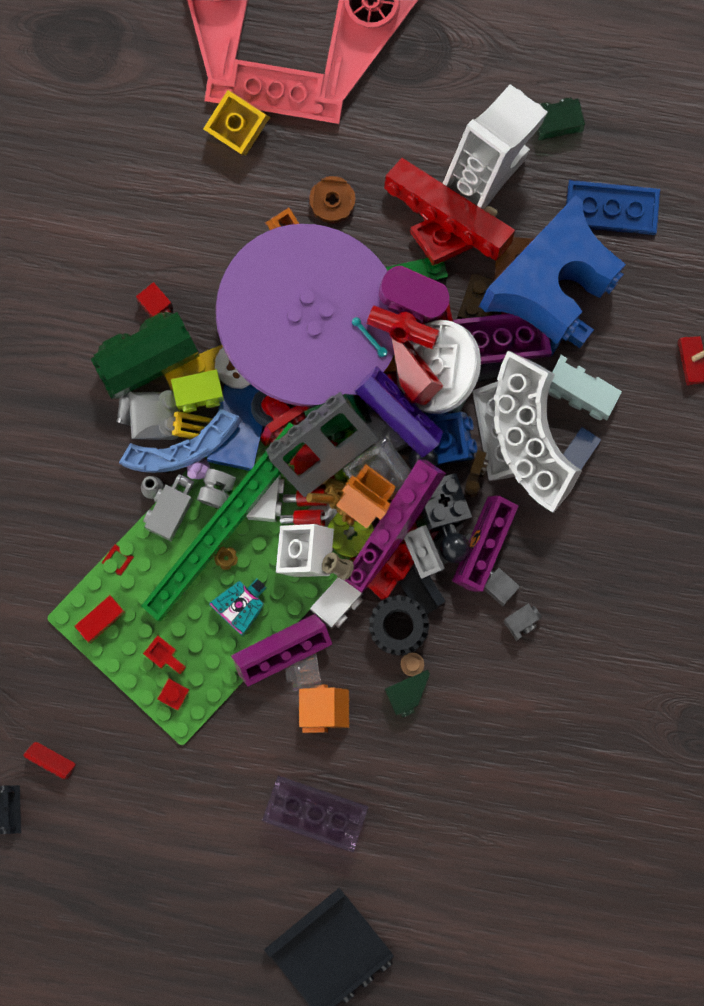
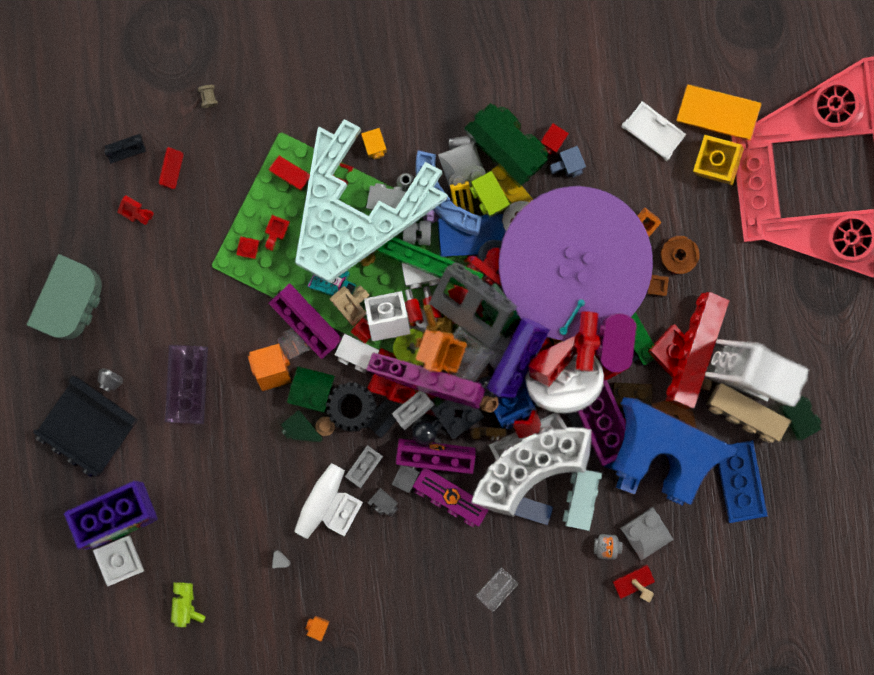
camera: 70 degrees right, 5 degrees up
(84, 821) = (132, 210): none -> red plate
(95, 510) = (374, 143): none -> light orange brick
(170, 930) = (66, 300): none -> sand green brick
(172, 196) = (652, 132): none -> white door
(181, 107) = (719, 112): none -> light orange tile
(187, 290) = (570, 161): none -> sand blue brick
(192, 580) = (340, 236): none -> light aqua wing
(277, 591) = (349, 304): none -> tan plate
(282, 908) = (109, 379): none -> flat silver cone
(313, 586) = (362, 330): none -> red plate
(337, 566) = (380, 345): dark tan bush -> none
(361, 232) = (658, 285): none -> dark orange plate
(364, 668) = (310, 389): none -> dark green slope
(443, 461) = (489, 403): none -> medium nougat plate
(448, 948) = (111, 516): none -> dark purple brick
(473, 632) = (364, 466): none -> light grey plate
(483, 426) = (528, 428): none -> red panel
(503, 958) = (118, 560): none -> white plate
(506, 688) = (326, 504): none -> white plate
(536, 540) = (450, 496): none -> magenta brick
(537, 174) = (748, 413): none -> tan brick
(556, 763) = (280, 560): none -> light grey slope
(580, 897) = (181, 606): none -> lime piece
(642, 329) = (646, 533): none -> light grey slope
(645, 377) = (607, 547): none -> light grey head
(648, 741) = (317, 627): none -> orange plate
(660, 519) = (497, 589): none -> clear slope

